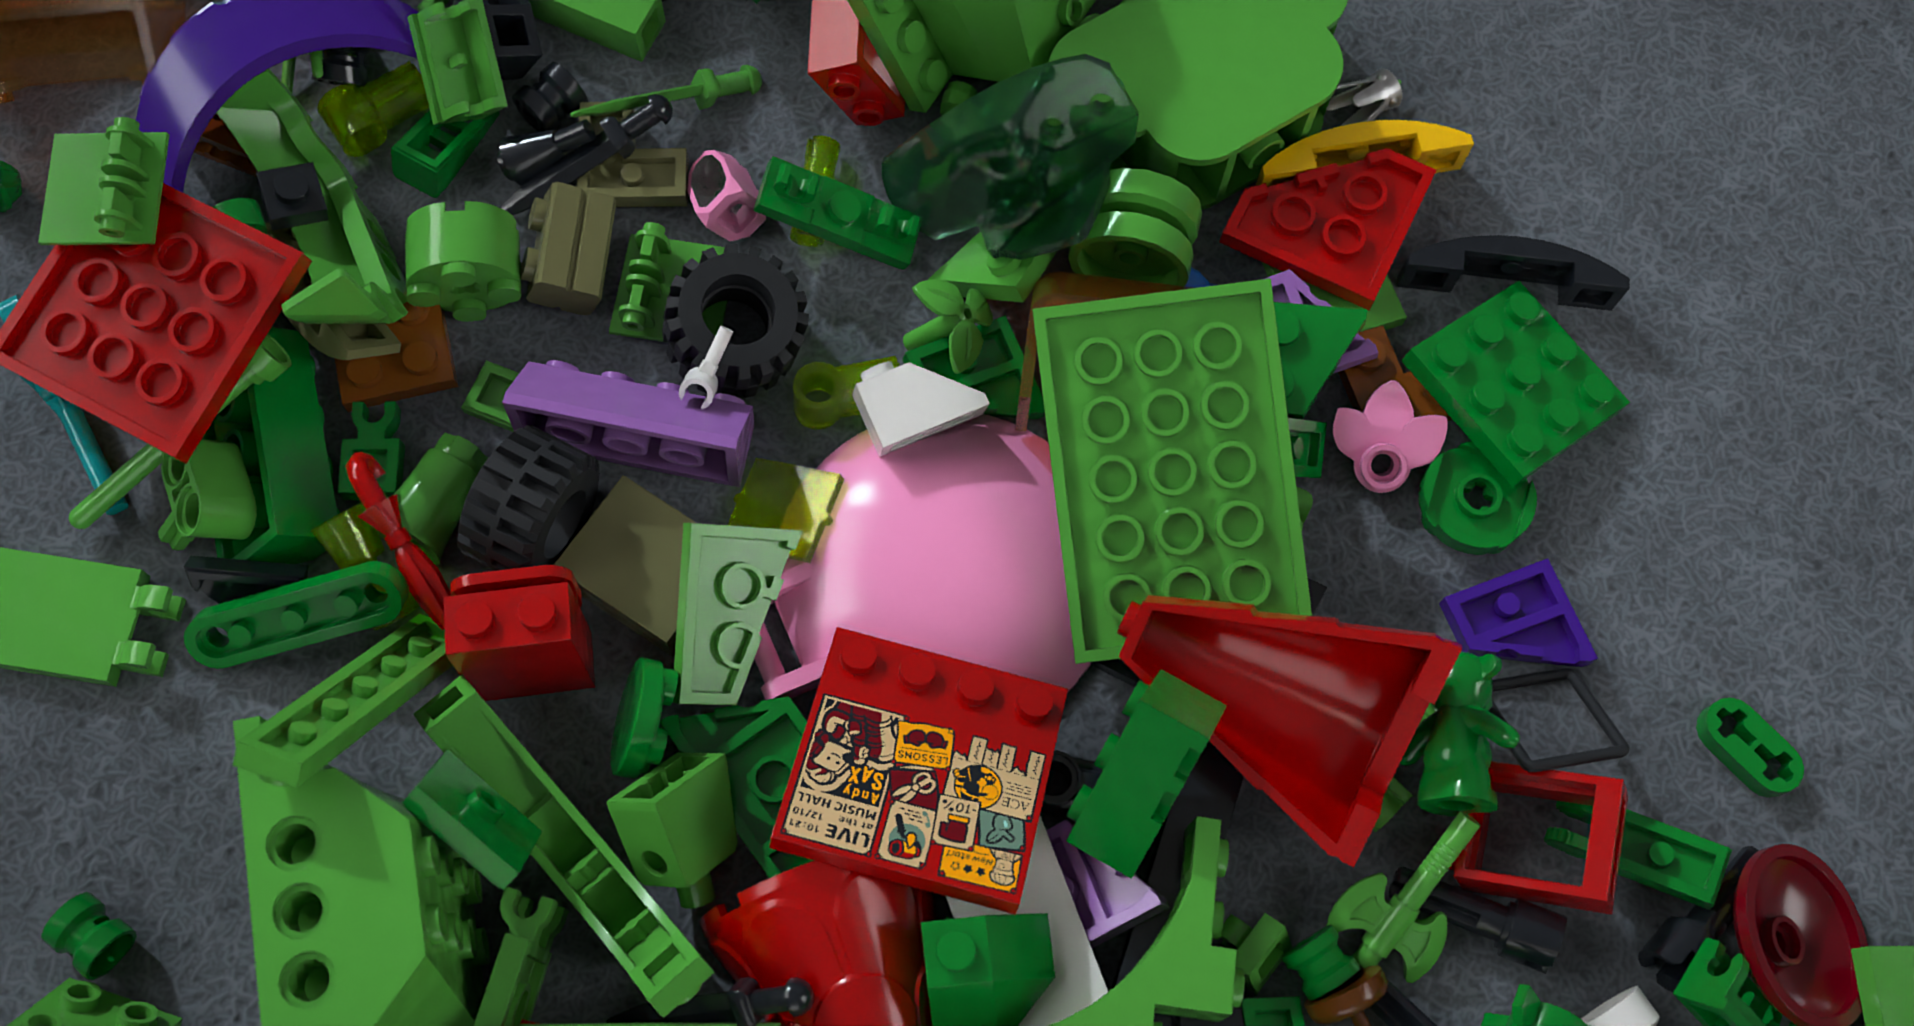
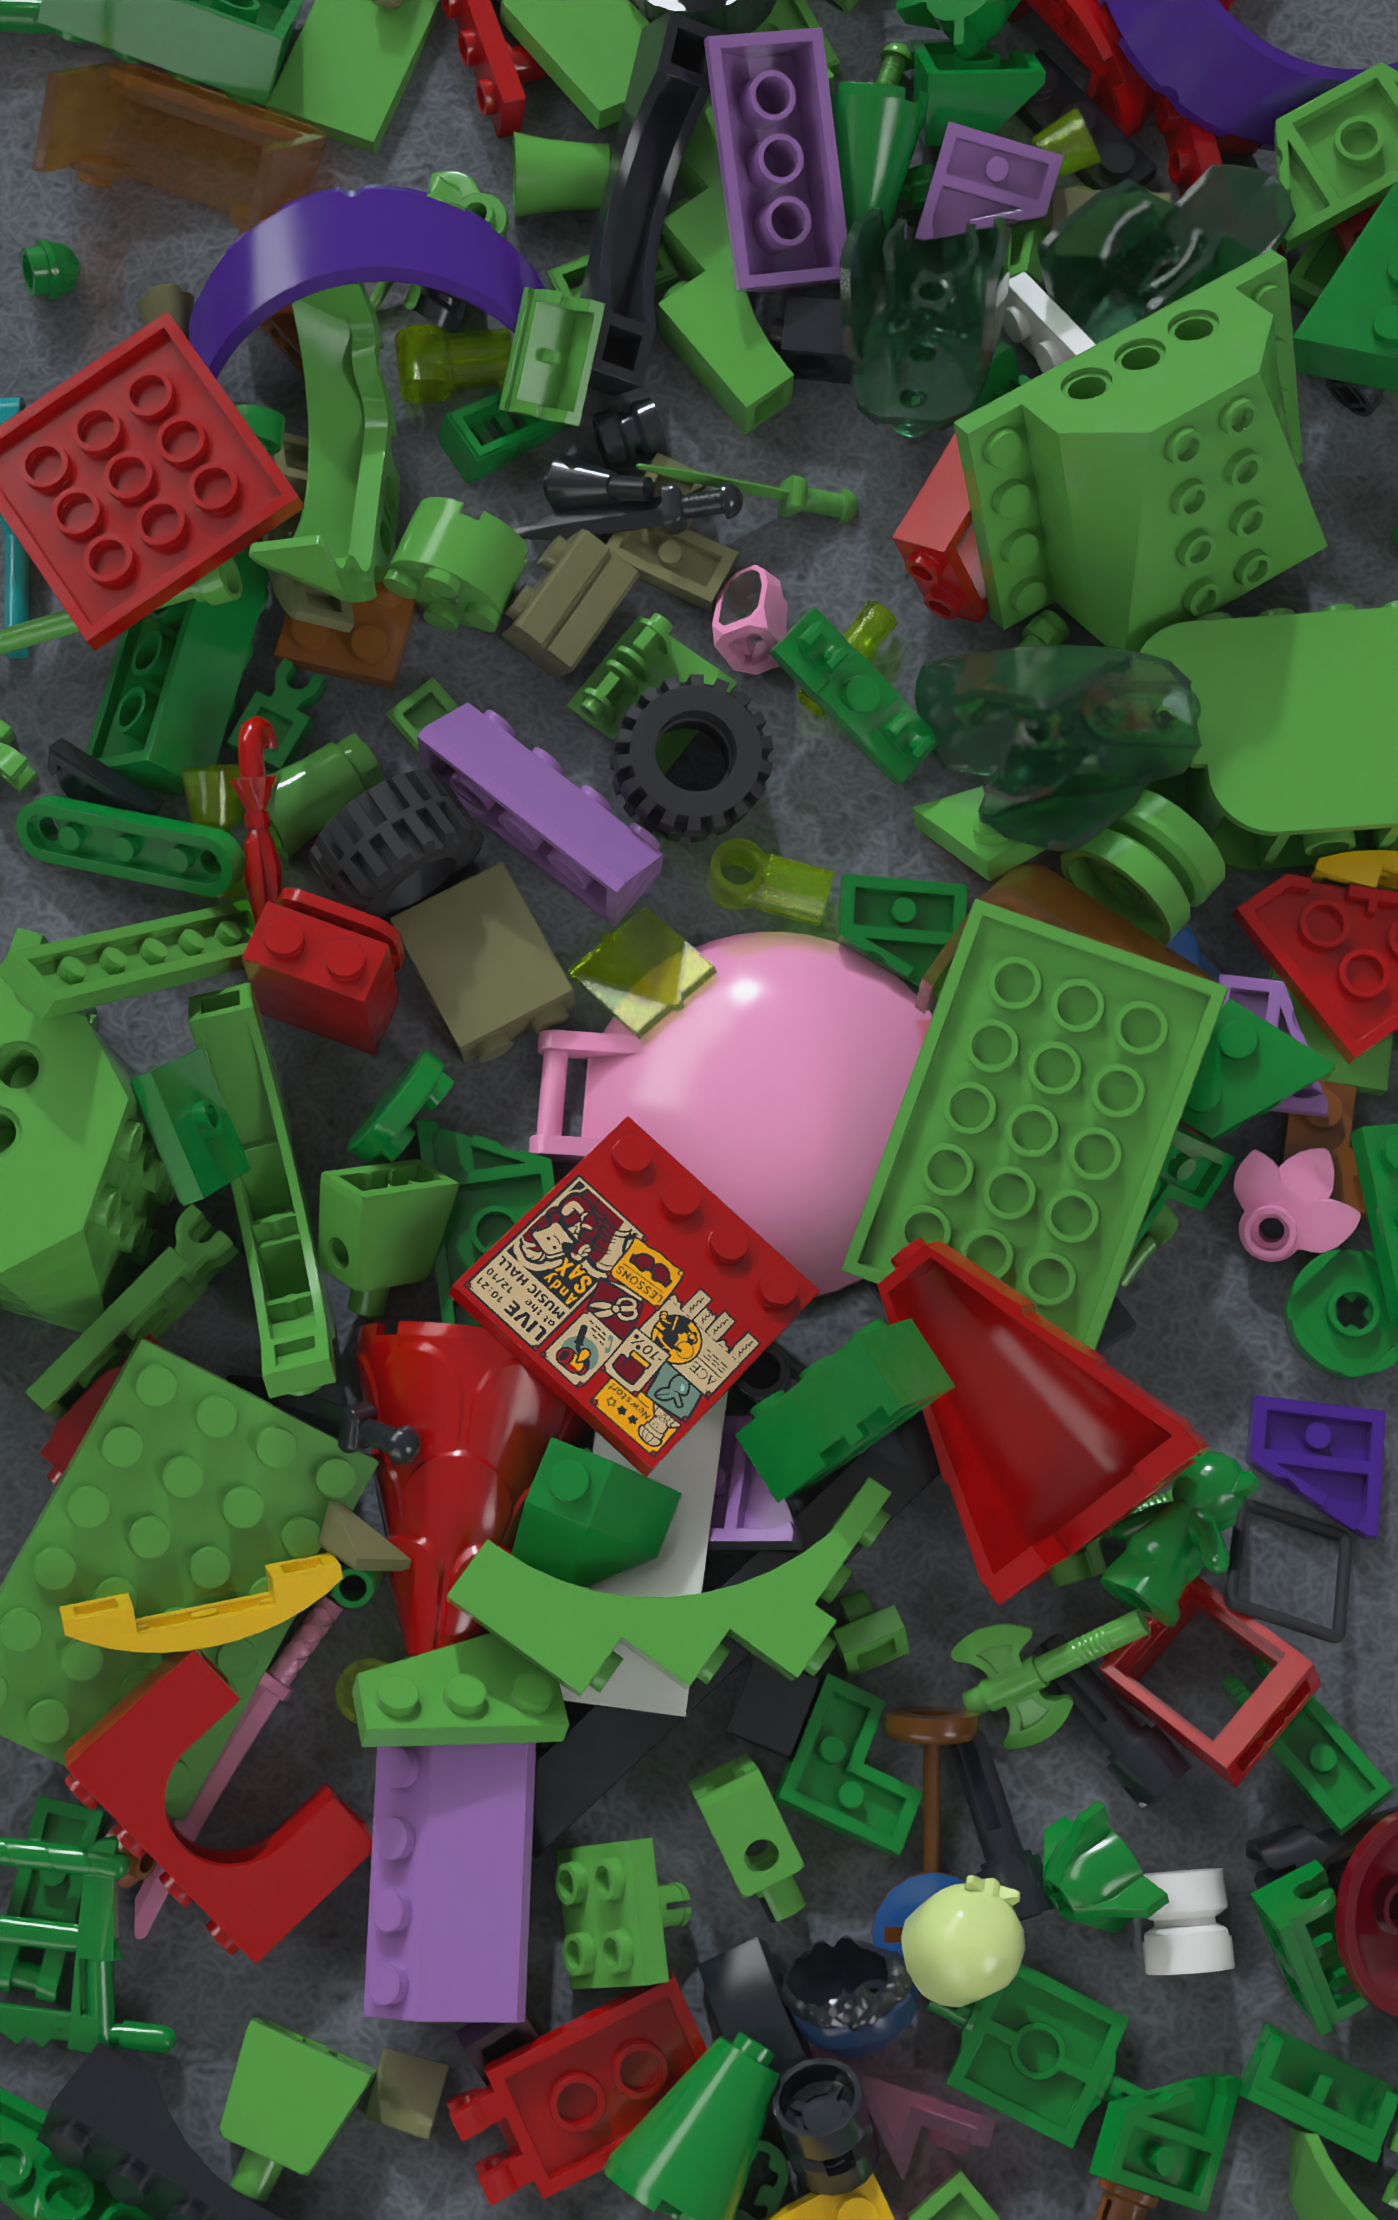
camera: 30 degrees right, 5 degrees up
(104, 186) = (146, 340): bright green hinge -> none
(208, 495) = (104, 688): bright green beam -> none
(292, 196) = (325, 421): black plate -> none
(705, 373) = (629, 801): white hand -> none
(722, 604) = (531, 1037): bright green wing -> none
(912, 404) = (818, 931): white slope -> none
(954, 321) = (907, 864): bright green plant -> none
(1320, 962) = (924, 1680): green wheel -> none

